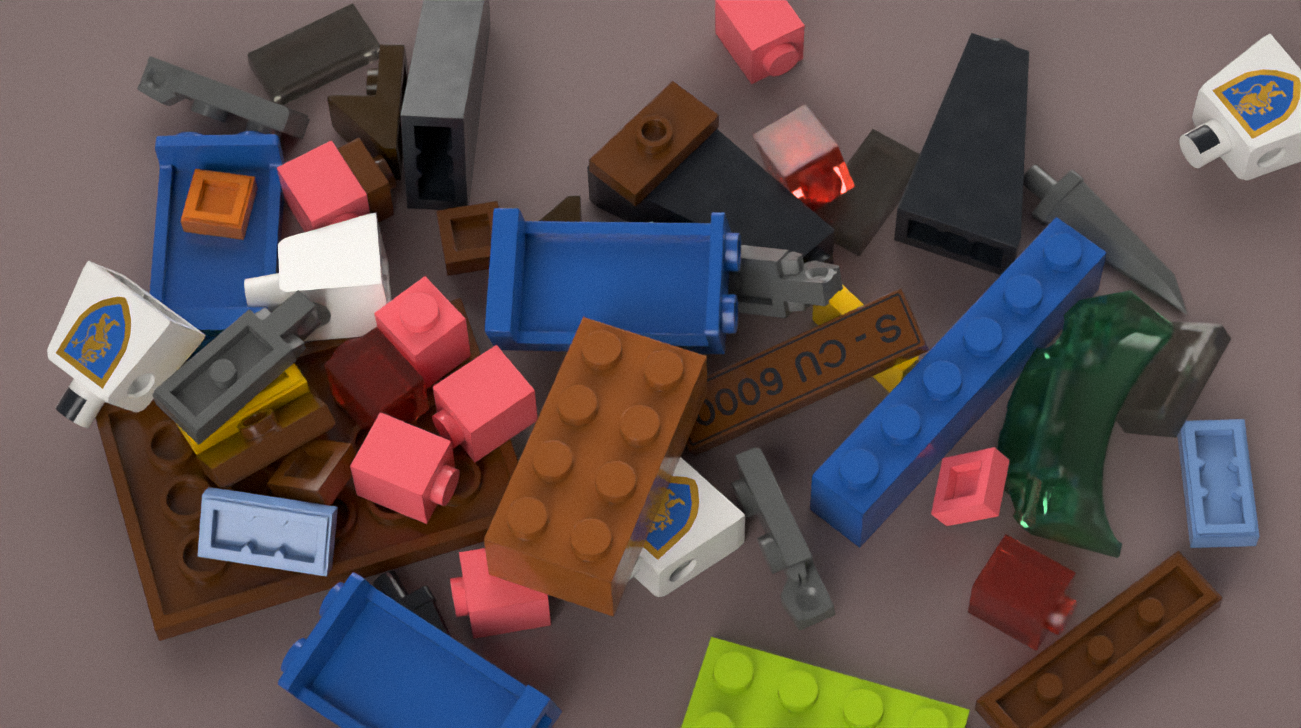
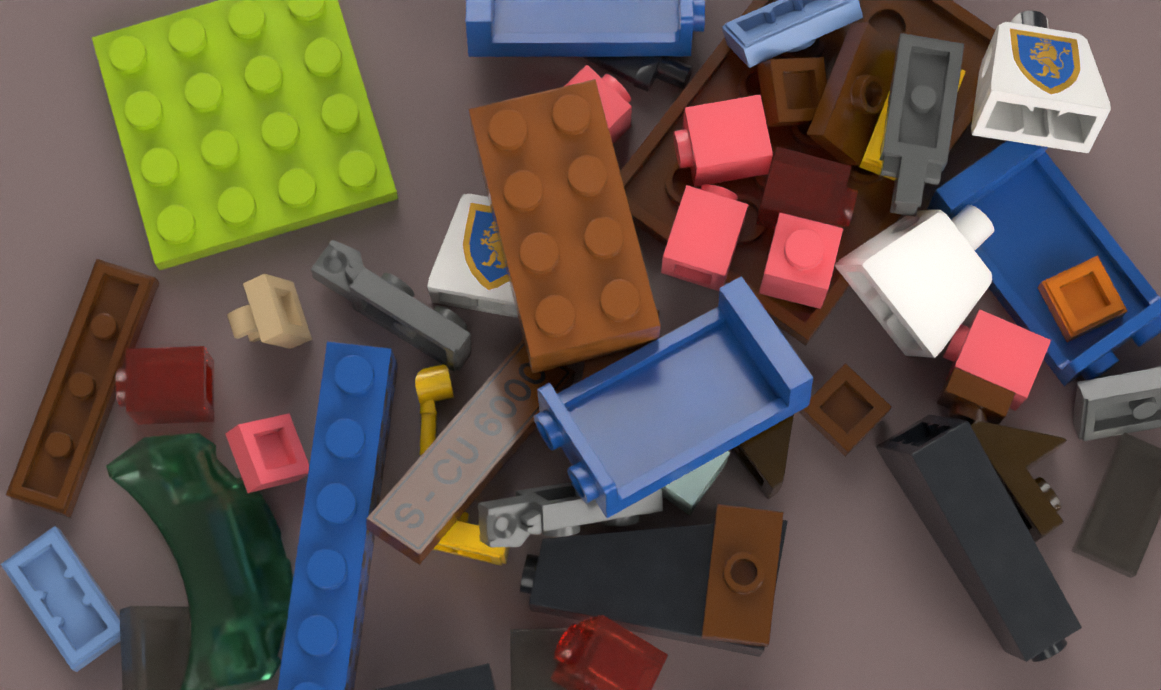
camera: 145 degrees right, 15 degrees up
(794, 464) = (431, 386): none -> yellow hand
(894, 598) = (272, 315): none -> tan tile

